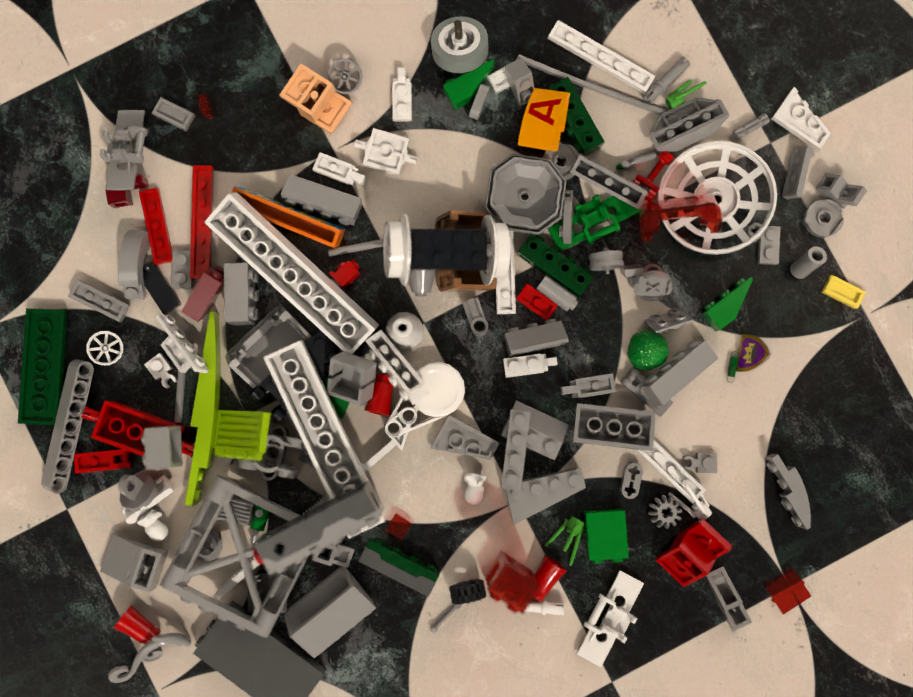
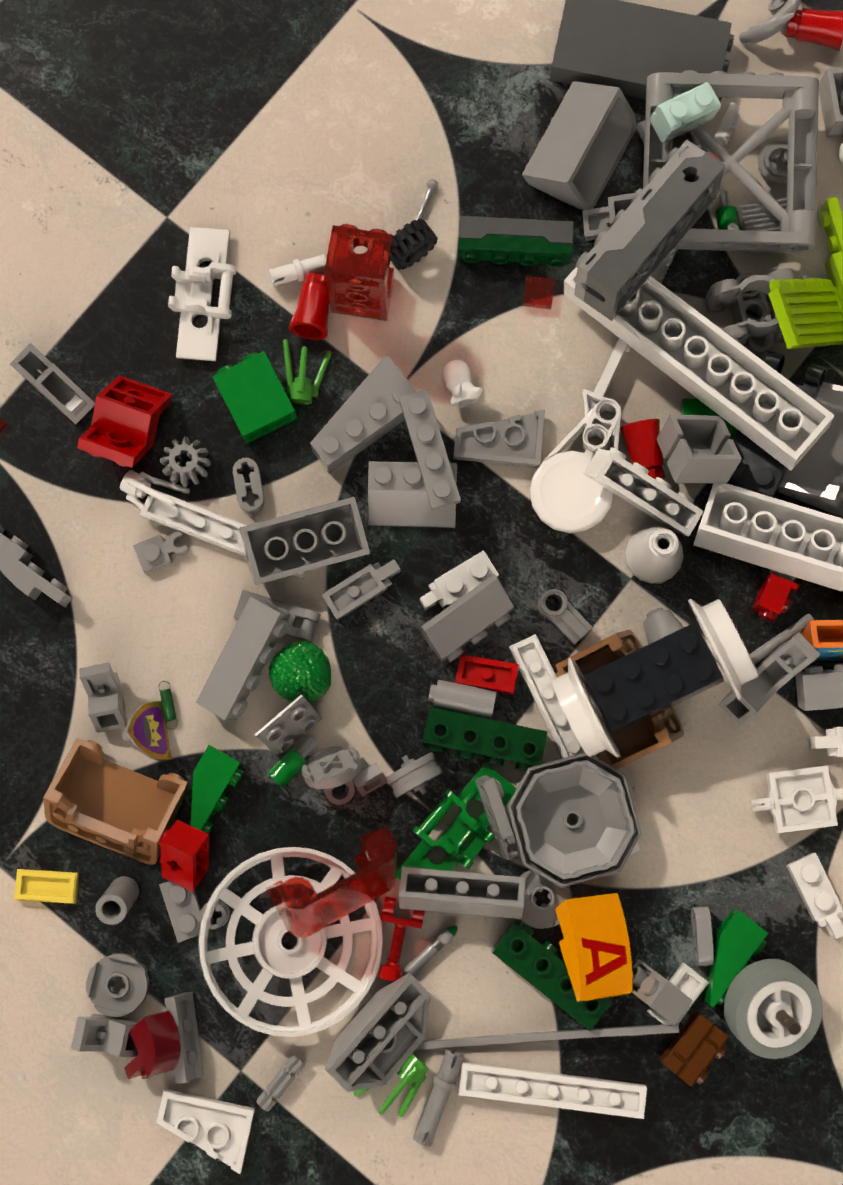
camera: 160 degrees right, 5 degrees down
(257, 598) = (685, 112): none -> light aqua brick
(370, 228) = (772, 675): none -> light grey arch
(511, 44) = (695, 1049): none -> reddish brown brick
(674, 299) = (291, 763): none -> green piece
(760, 271) = (184, 855): none -> red brick
(769, 385) = (104, 697): none -> light grey brick
(787, 322) = (112, 803): none -> medium nougat windscreen
(816, 172) = (156, 1044): none -> dark red brick

